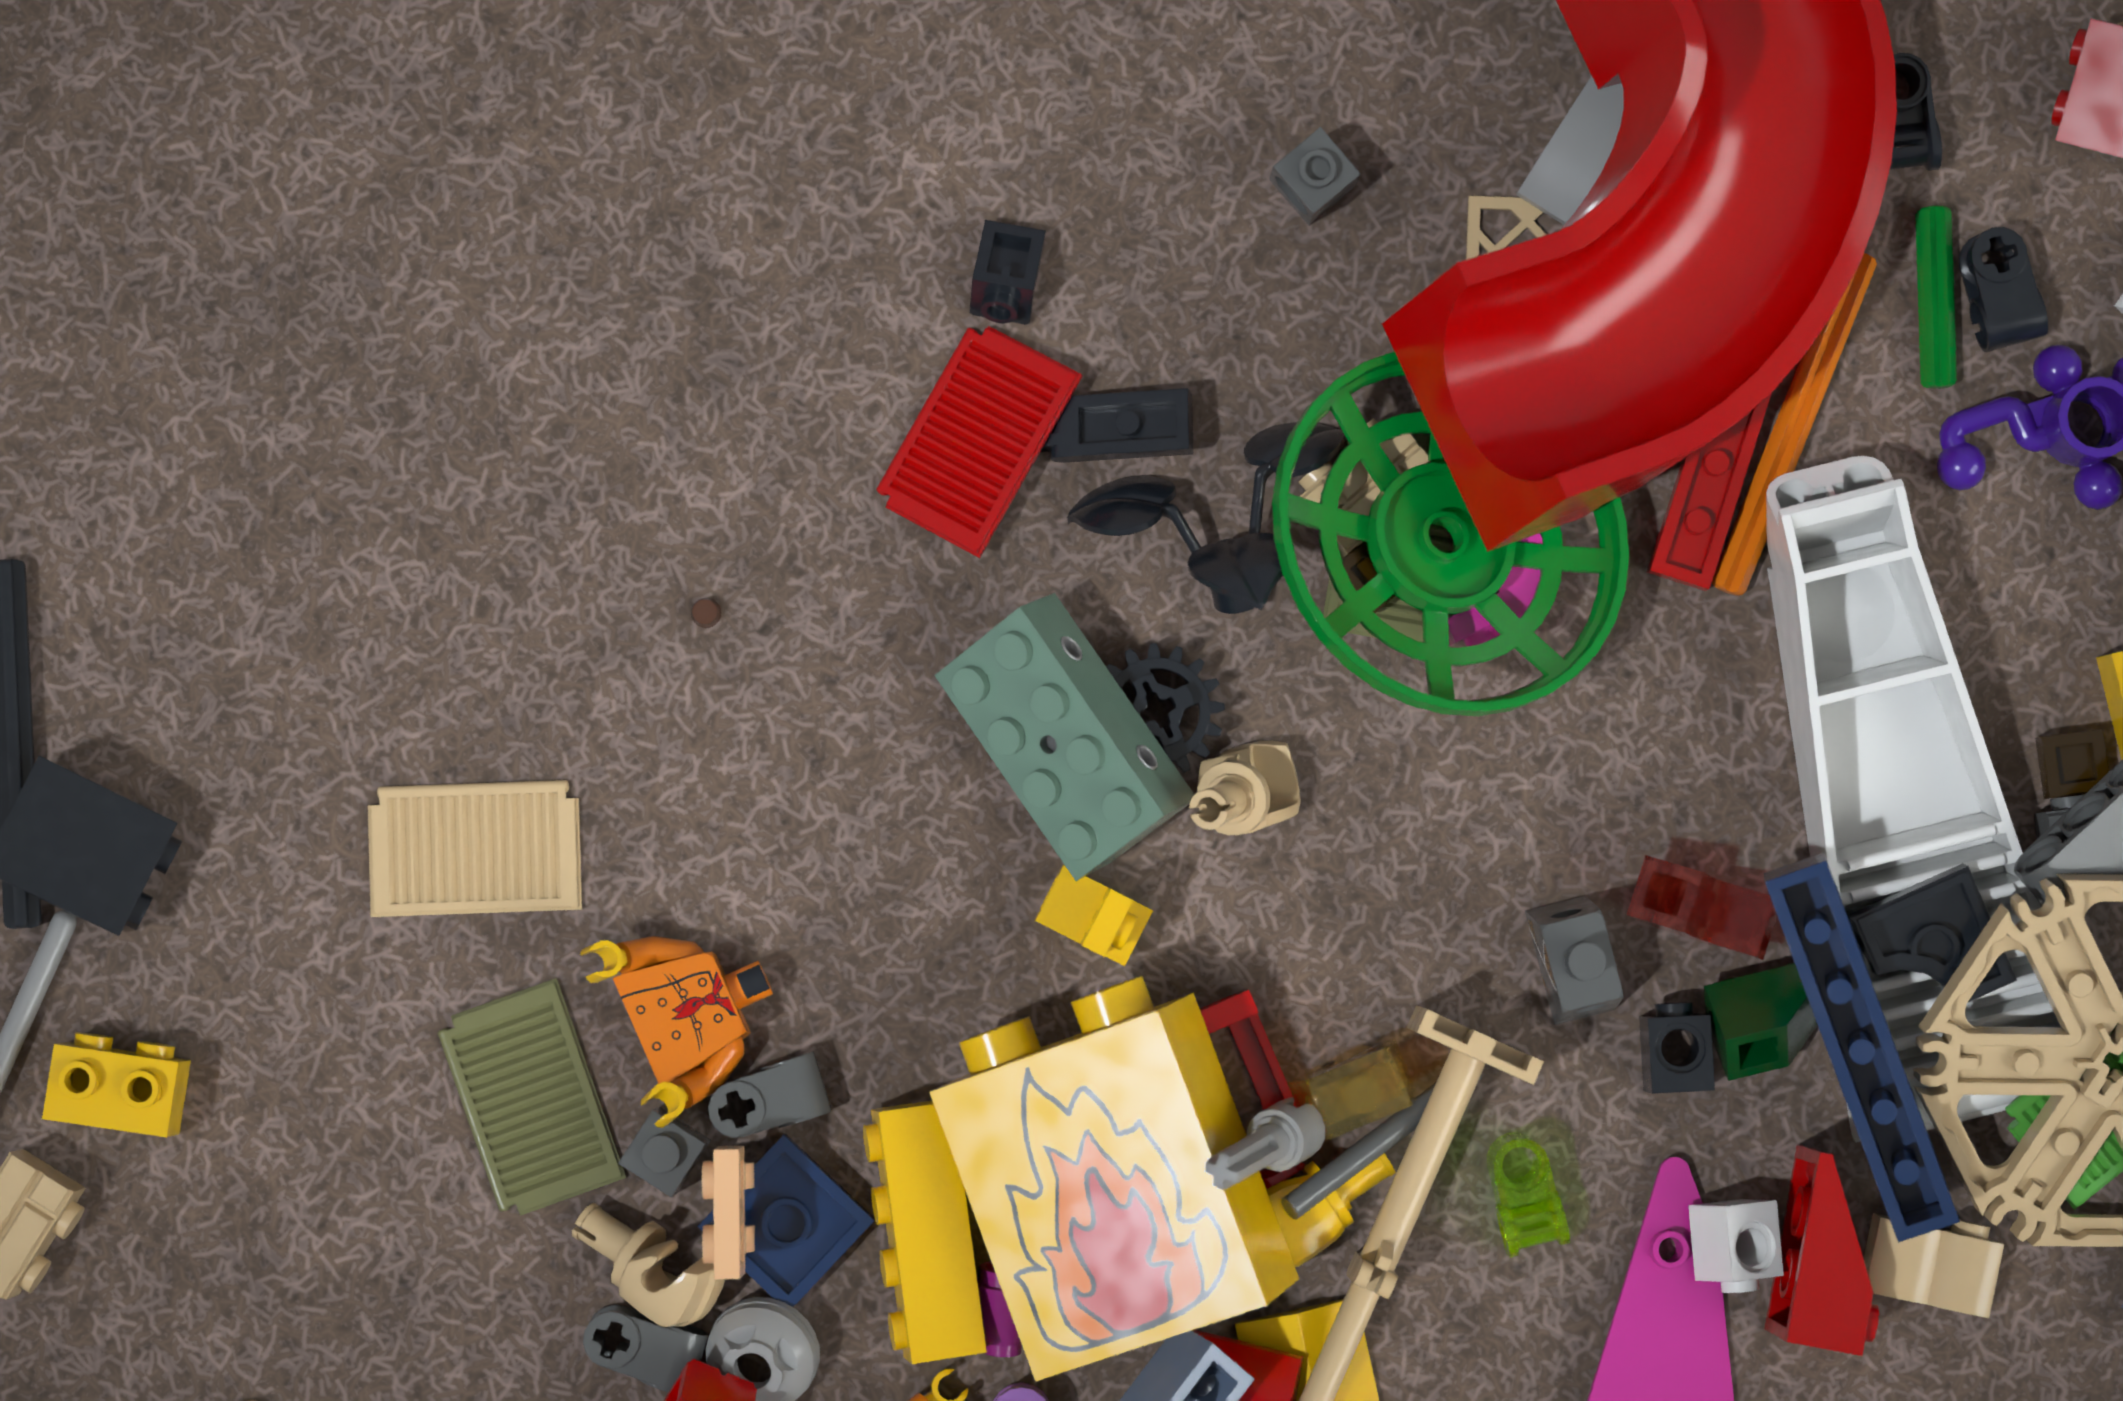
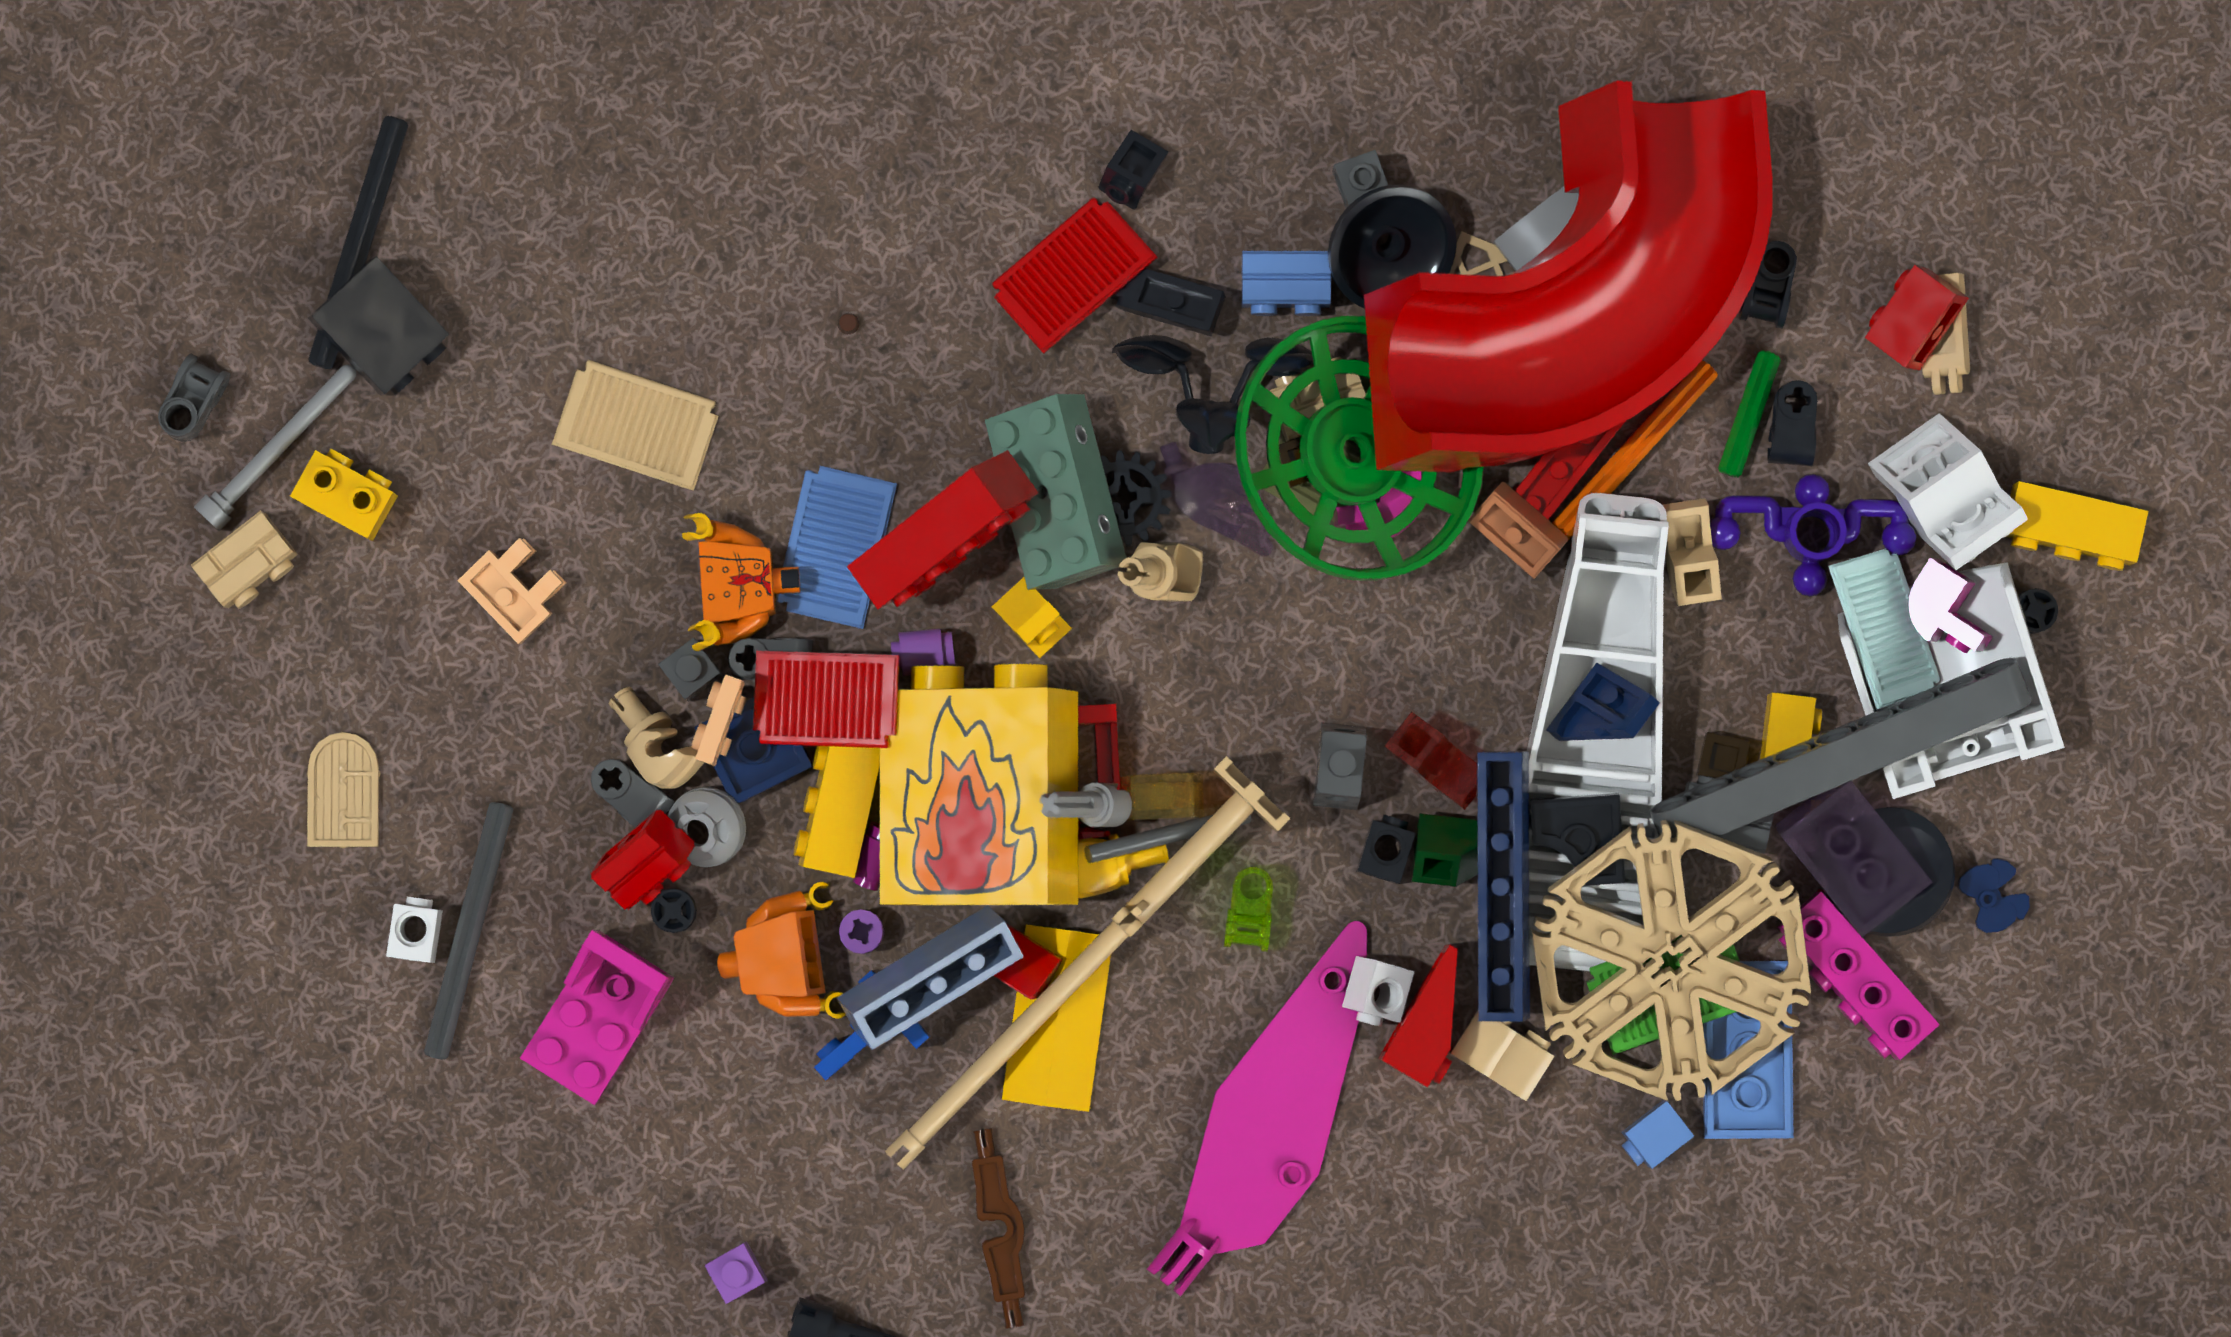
camera: 25 degrees right, 0 degrees up
(383, 1143) = (506, 596): none -> light nougat plate
(530, 1099) = (613, 604): olive window -> none
(799, 910) = (833, 526): none -> medium blue window
(861, 1128) = (825, 698): none -> red window
(938, 846) = (944, 531): none -> red brick
(965, 1011) = (923, 649): none -> medium lavender brick
(1264, 345) = (1286, 281): none -> medium blue brick
(1280, 667) = (1216, 500): none -> clear purple animal
(1418, 232) = (1418, 240): none -> black dish
(1695, 561) = (1518, 529): none -> nougat slope
(1898, 757) = (1603, 709): none -> dark blue wing
(1945, 519) = (1690, 553): none -> tan brick

